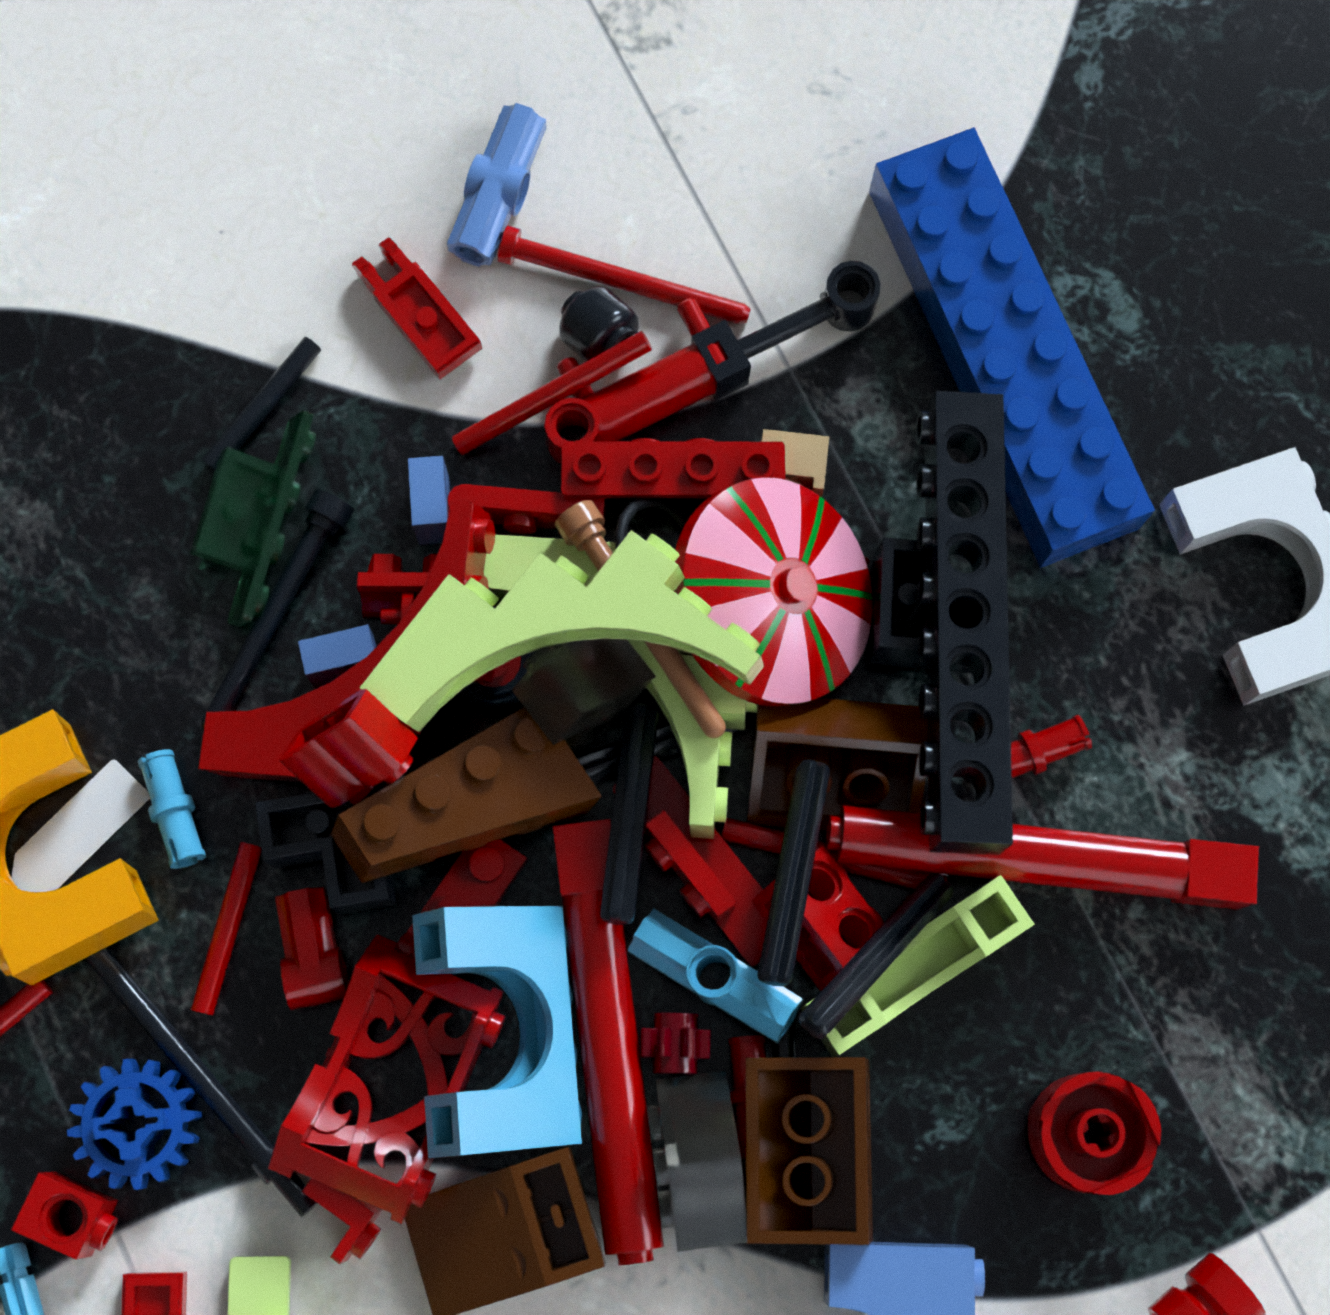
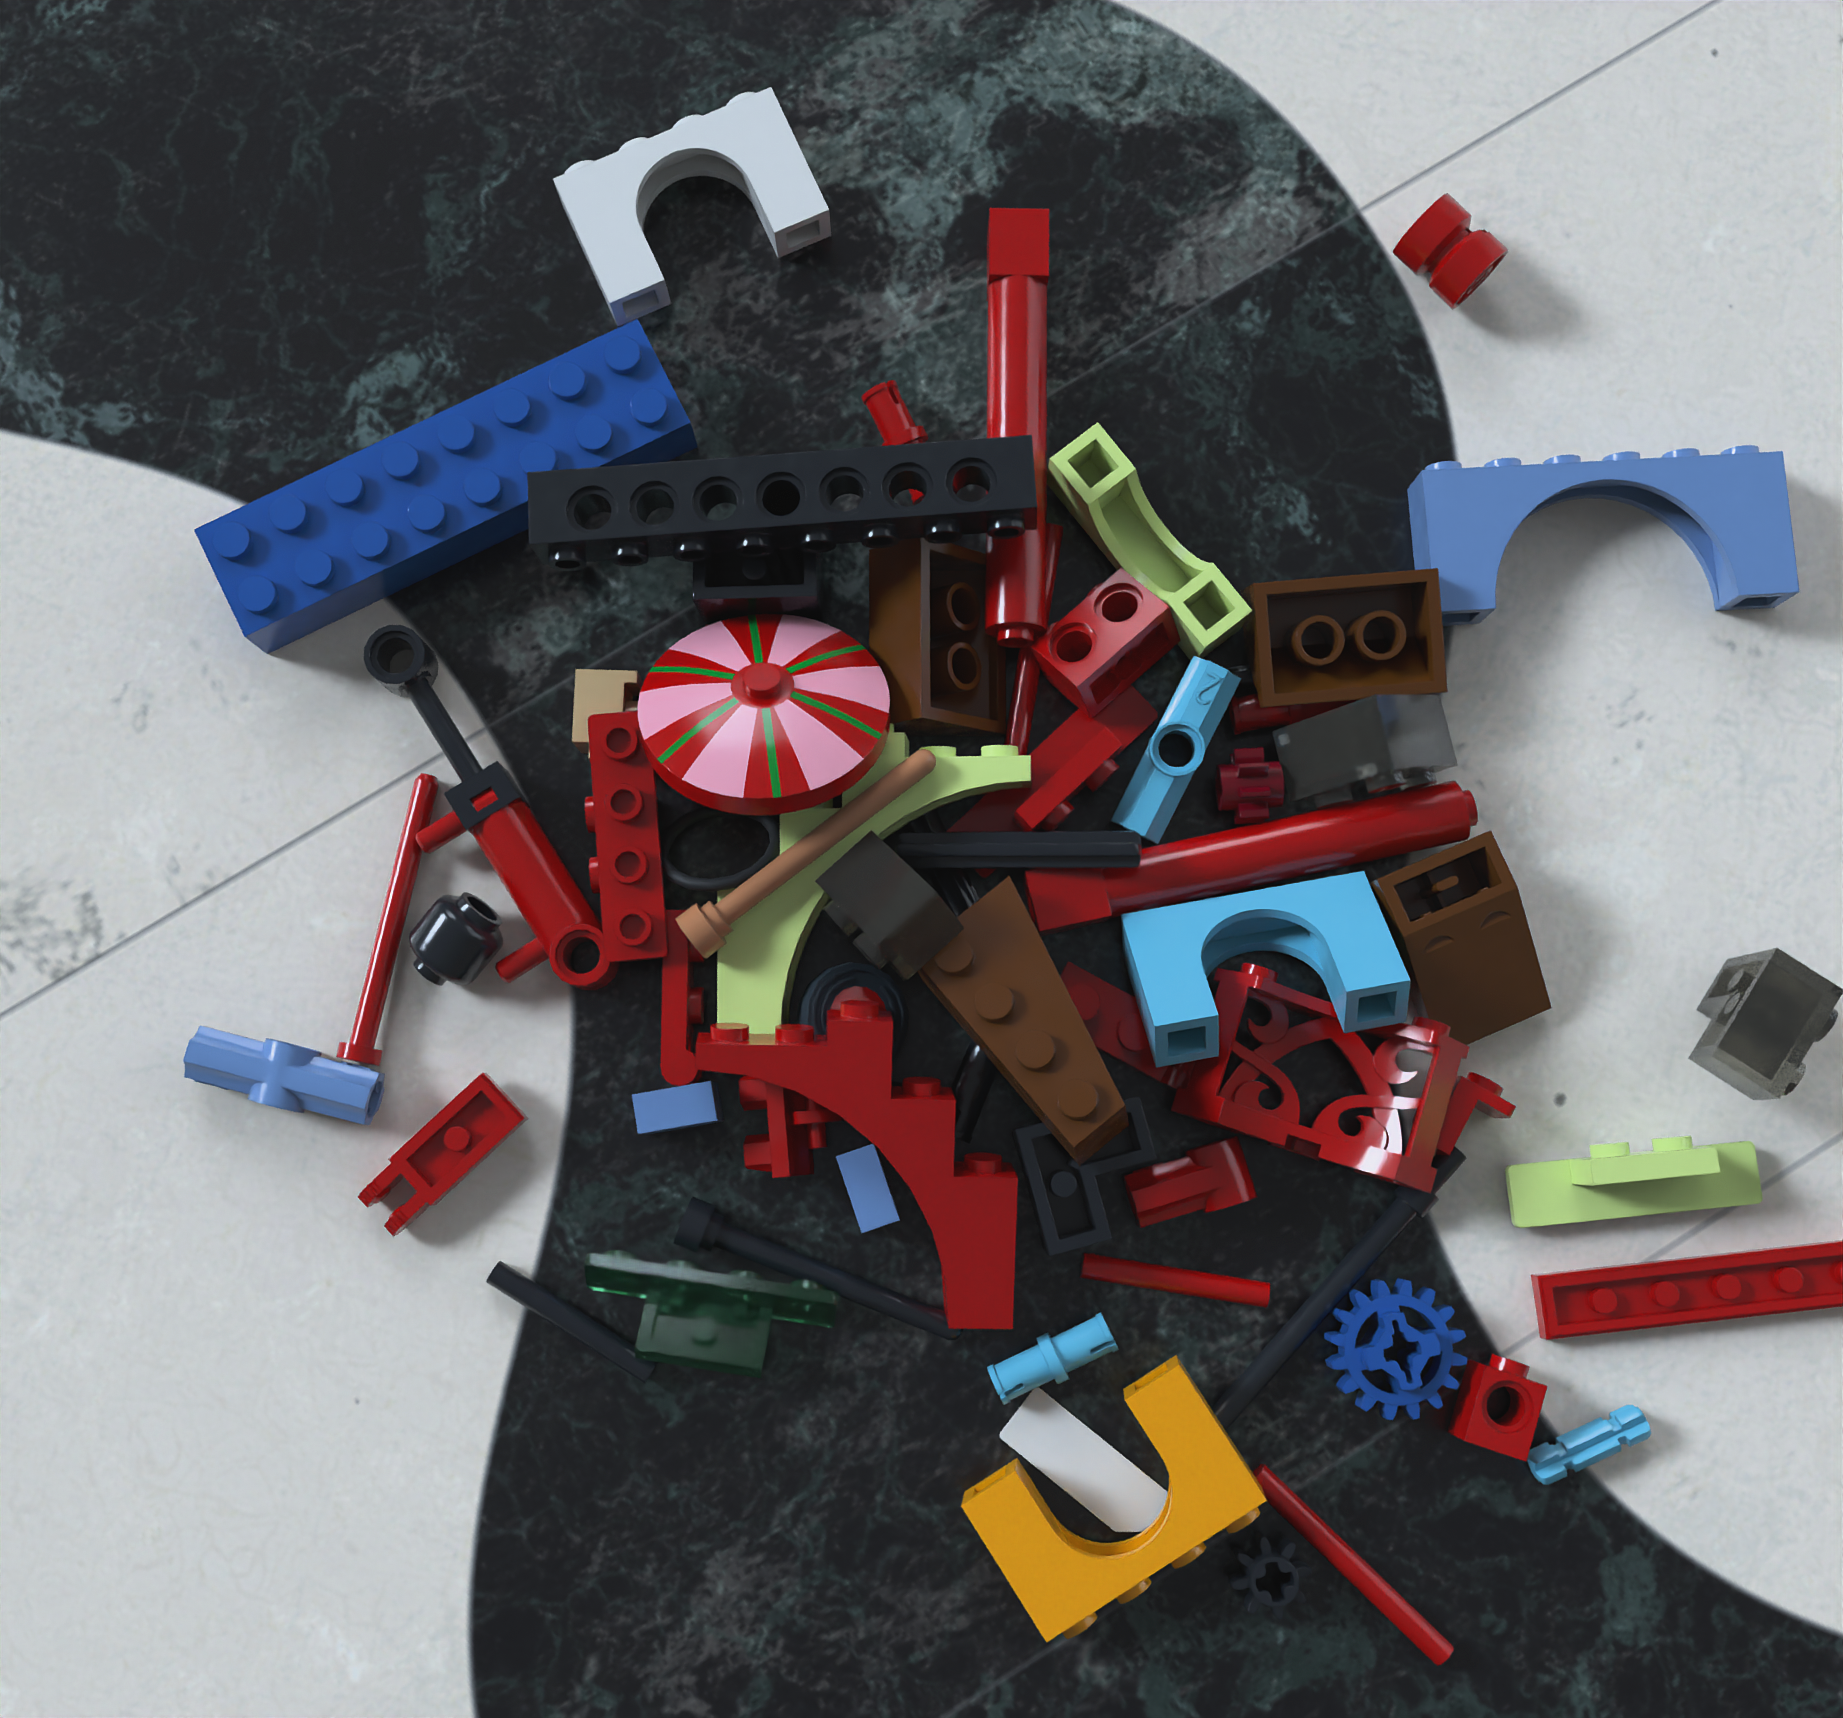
camera: 95 degrees left, 5 degrees up
(350, 750) = (995, 1147): red brick -> none
(552, 392) = (541, 982): red bar -> none
(630, 598) = (806, 847): yellowish green arch -> none
(794, 874) = (1072, 666): black axle -> none
(875, 956) = (1148, 579): black axle -> none
(1123, 1148) = (1266, 356): red brick -> none

